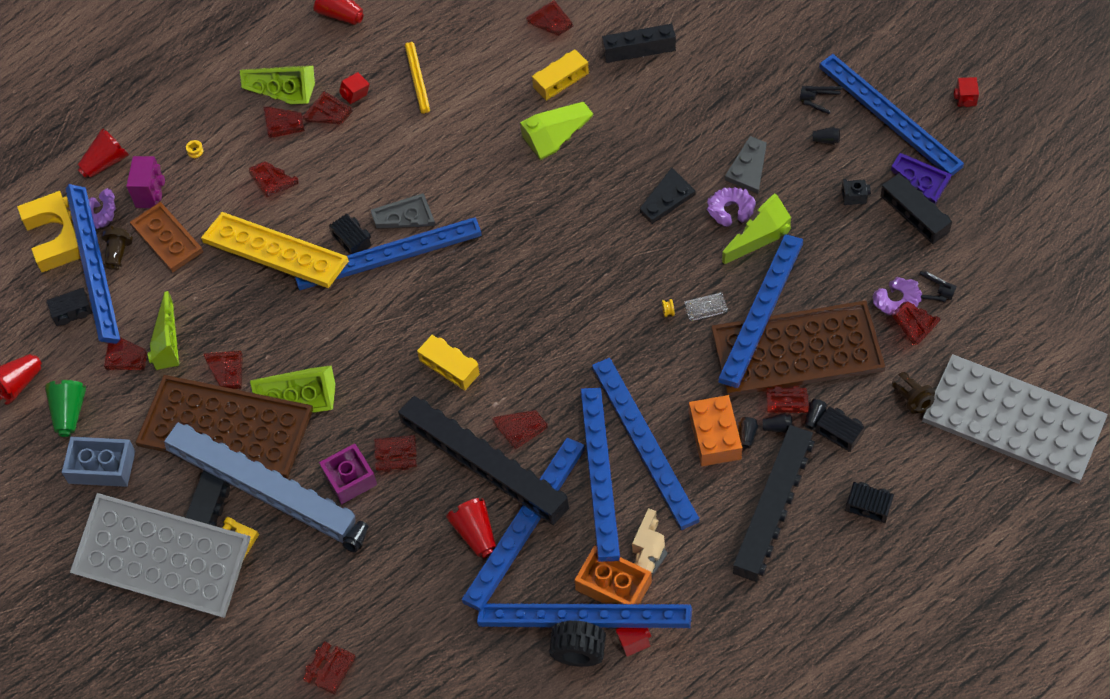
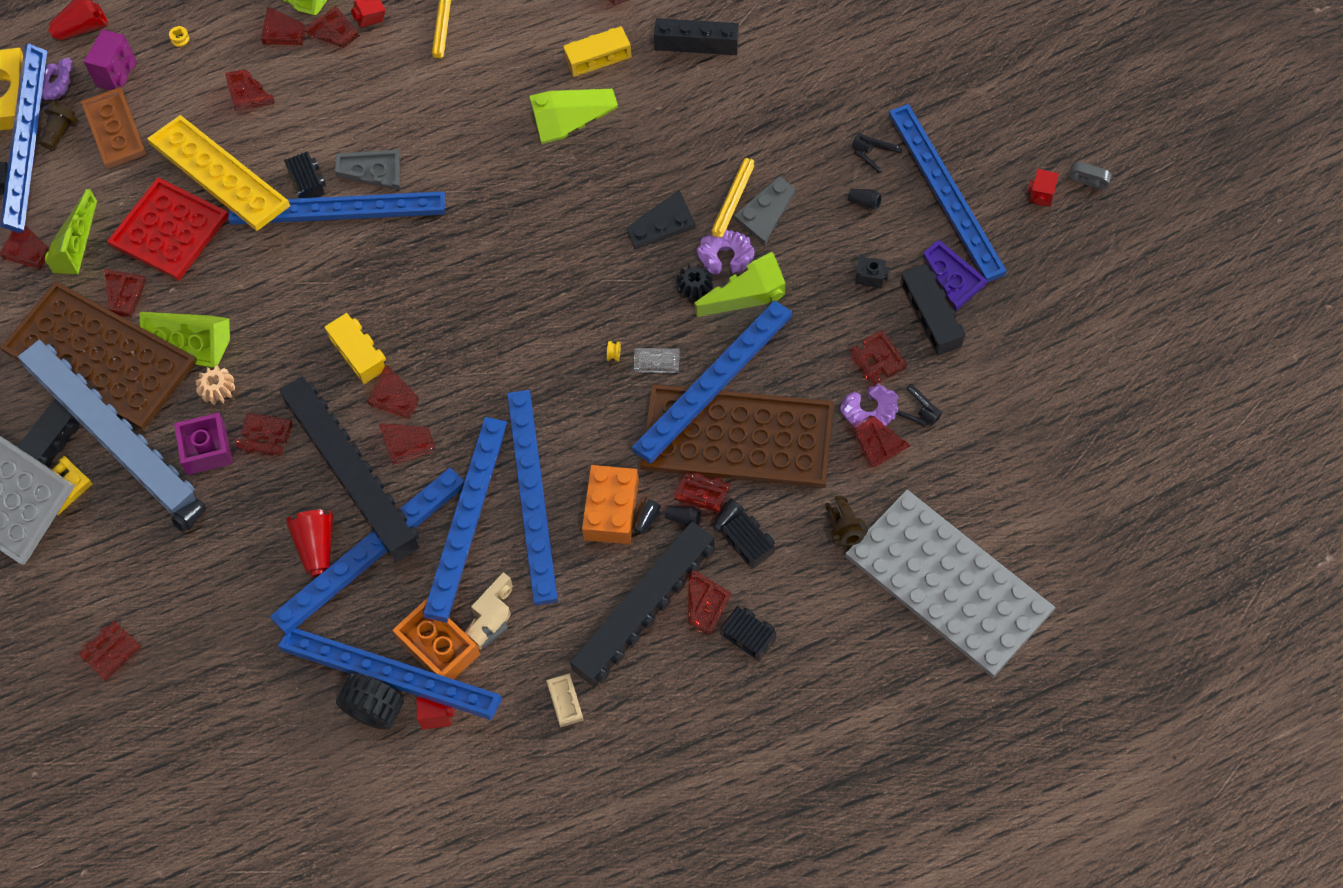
camera: 15 degrees right, 5 degrees up
(246, 307) = (168, 228): none -> red plate
(338, 424) = (215, 385): none -> light nougat gear
(494, 392) = (393, 395): none -> clear red wing
(714, 236) = (694, 282): none -> black gear
(720, 185) = (732, 198): none -> yellow axle
(738, 598) = (565, 700): none -> tan plate
(825, 487) = (705, 602): none -> clear red wing
(891, 253) = (883, 352): none -> clear red plate
(999, 73) = (1090, 175): none -> dark grey beam

